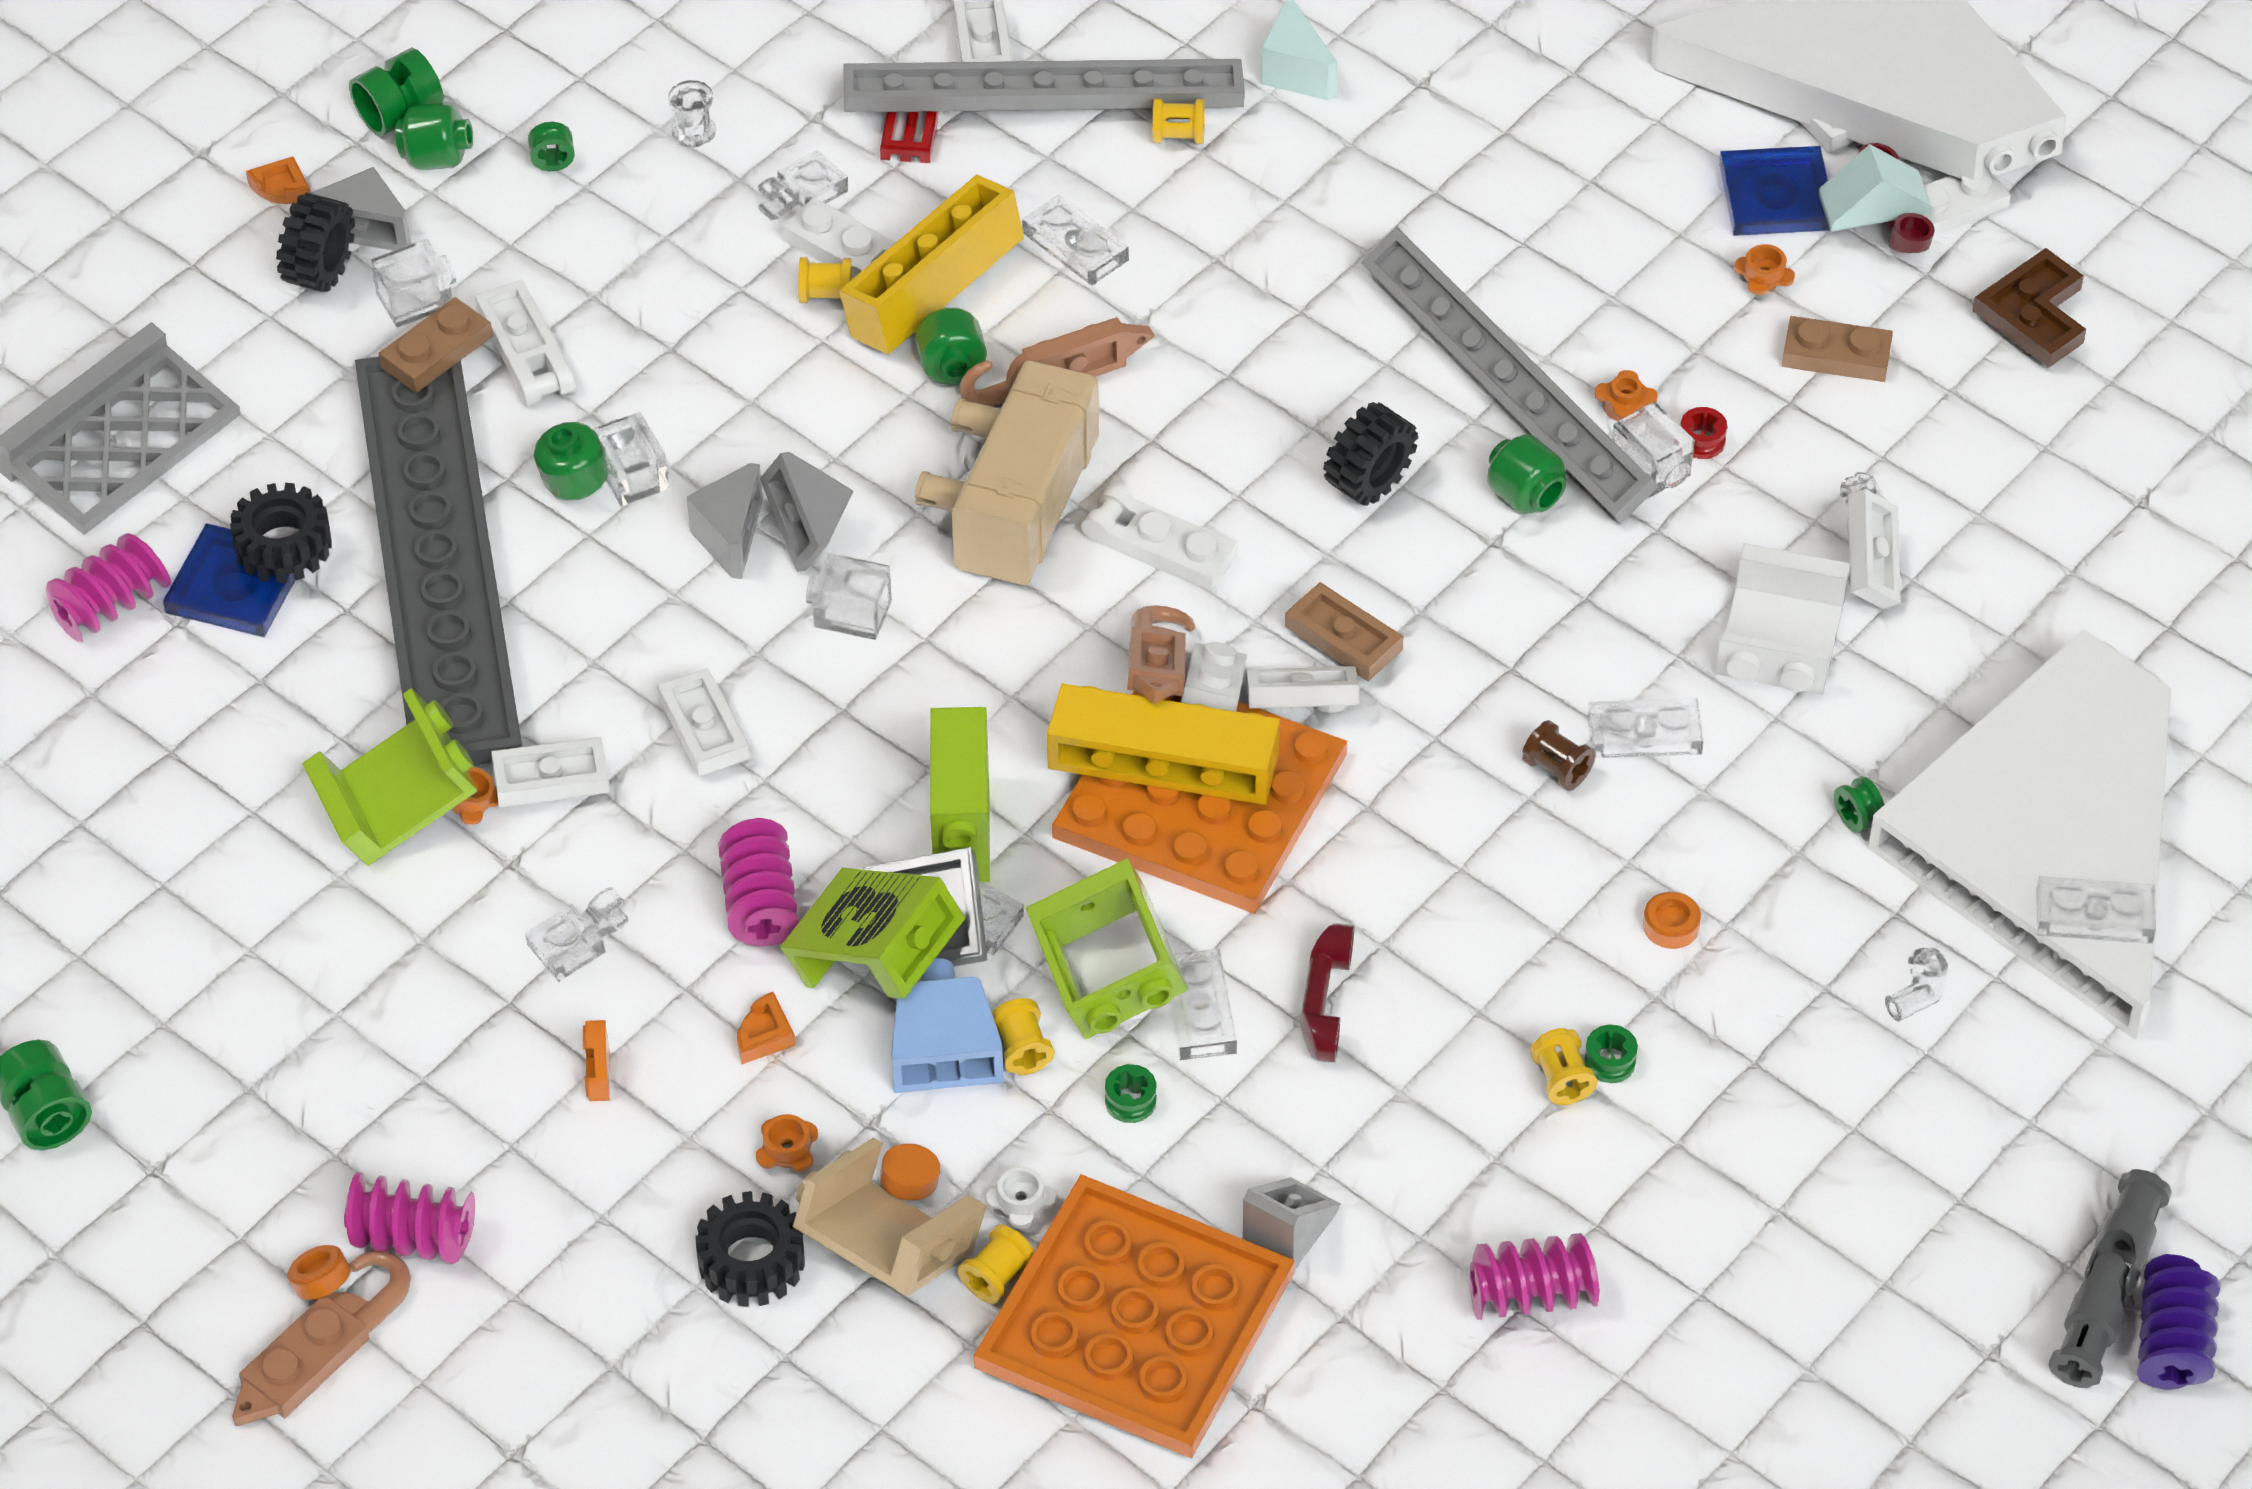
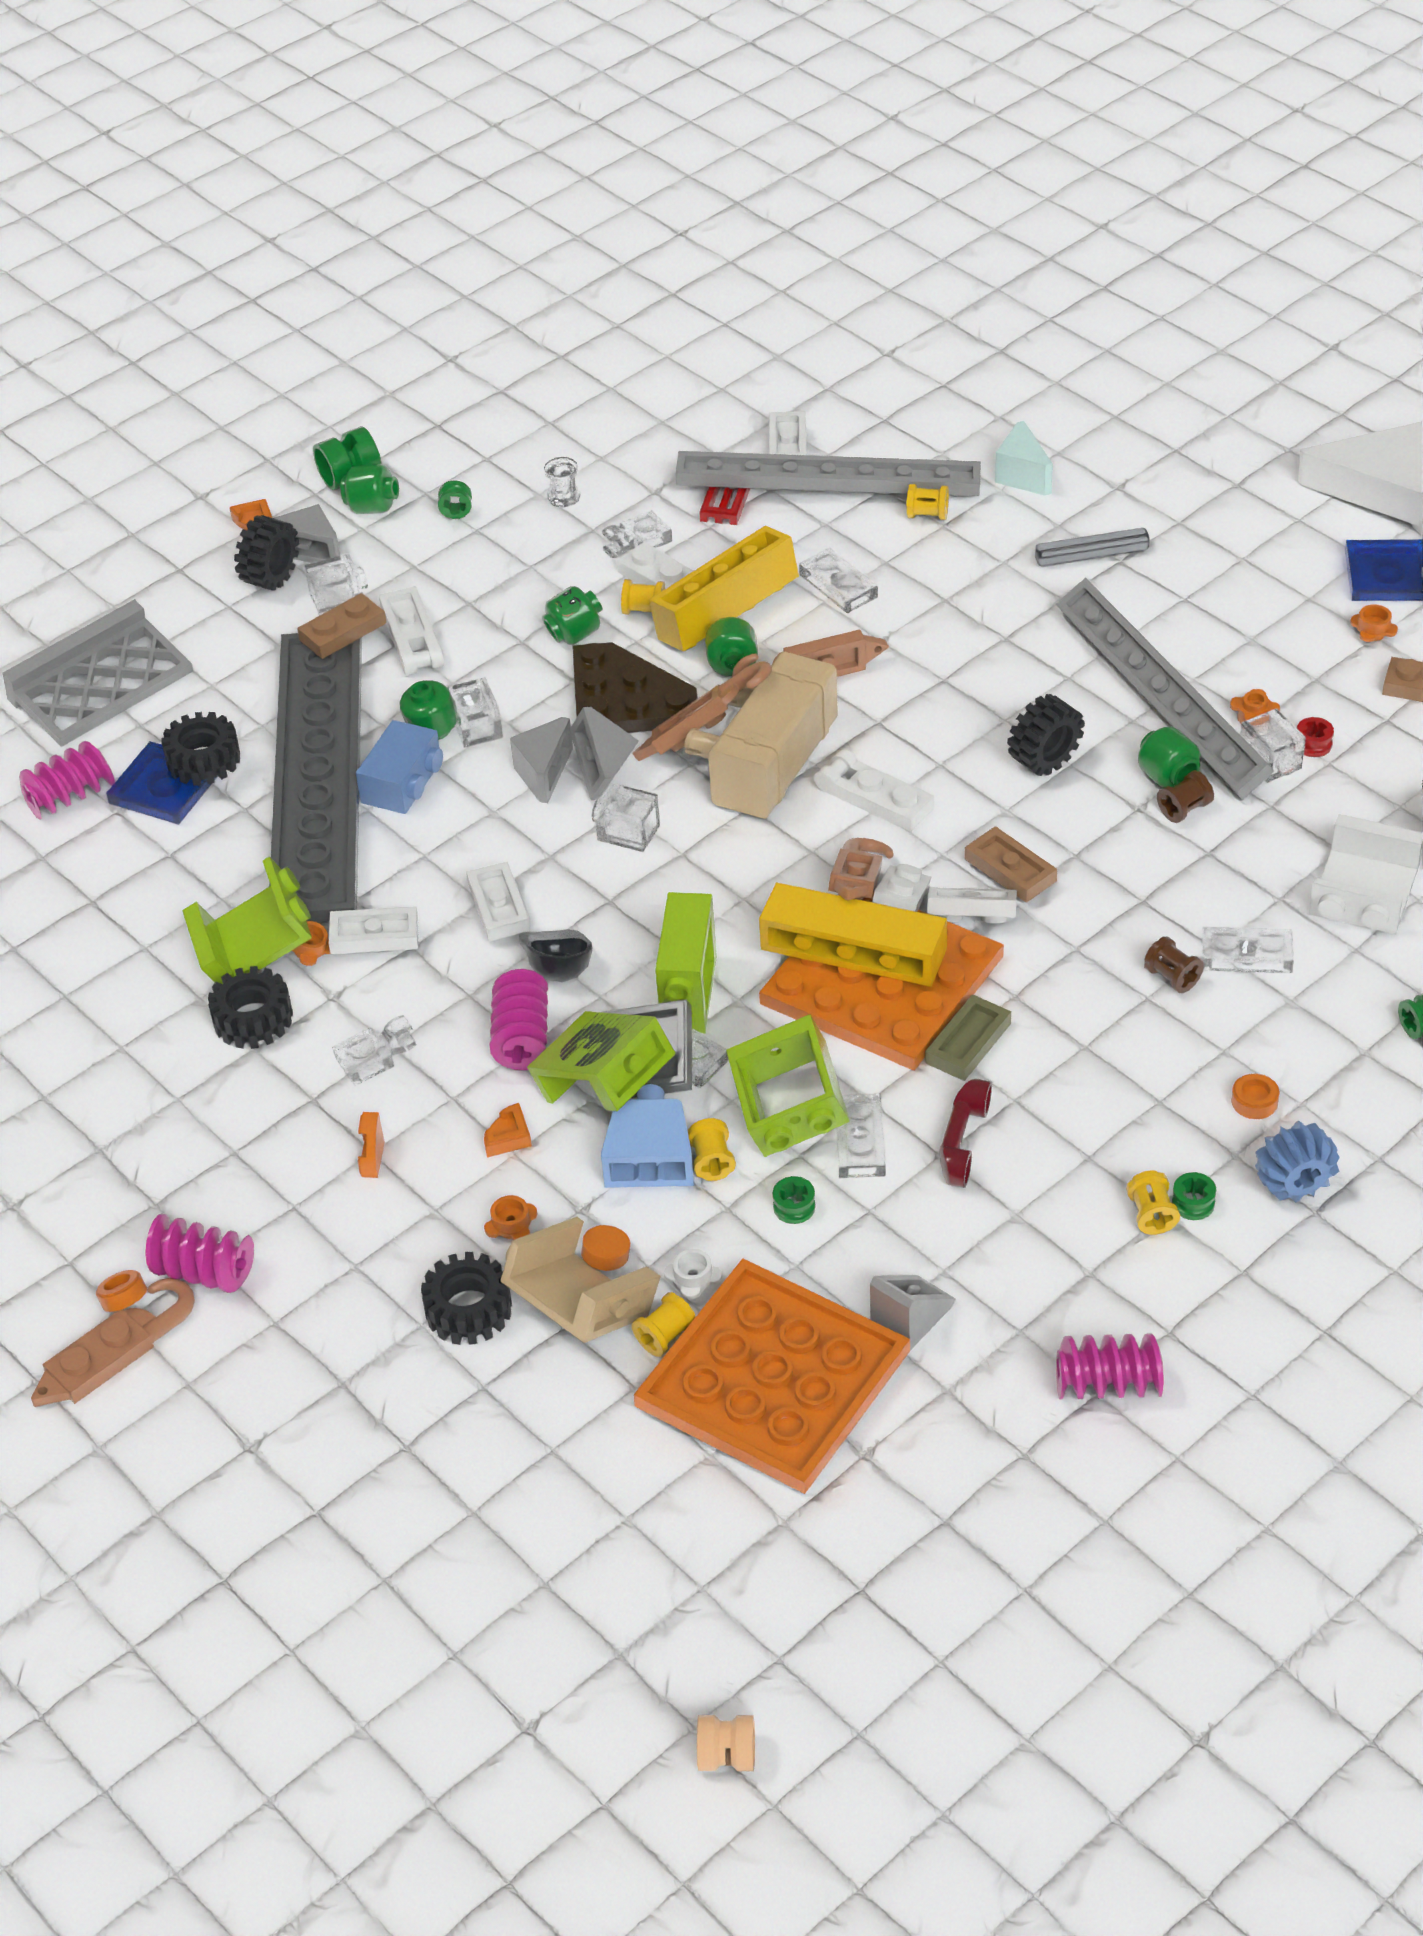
camera: 10 degrees right, 5 degrees down
(406, 862) = (245, 990): none -> black tyre
(545, 542) = (399, 767): none -> medium blue brick
(736, 311) = (572, 615): none -> green head
(791, 787) = (557, 953): none -> black cap
(826, 414) = (627, 687): none -> dark brown plate
(930, 446) = (704, 711): none -> nougat plate
(1317, 866) = (968, 1037): none -> olive tile
(1397, 175) = (1092, 547): none -> axle
(1551, 526) = (1185, 796): none -> reddish brown bush
(1731, 1004) = (1297, 1161): none -> medium blue gear

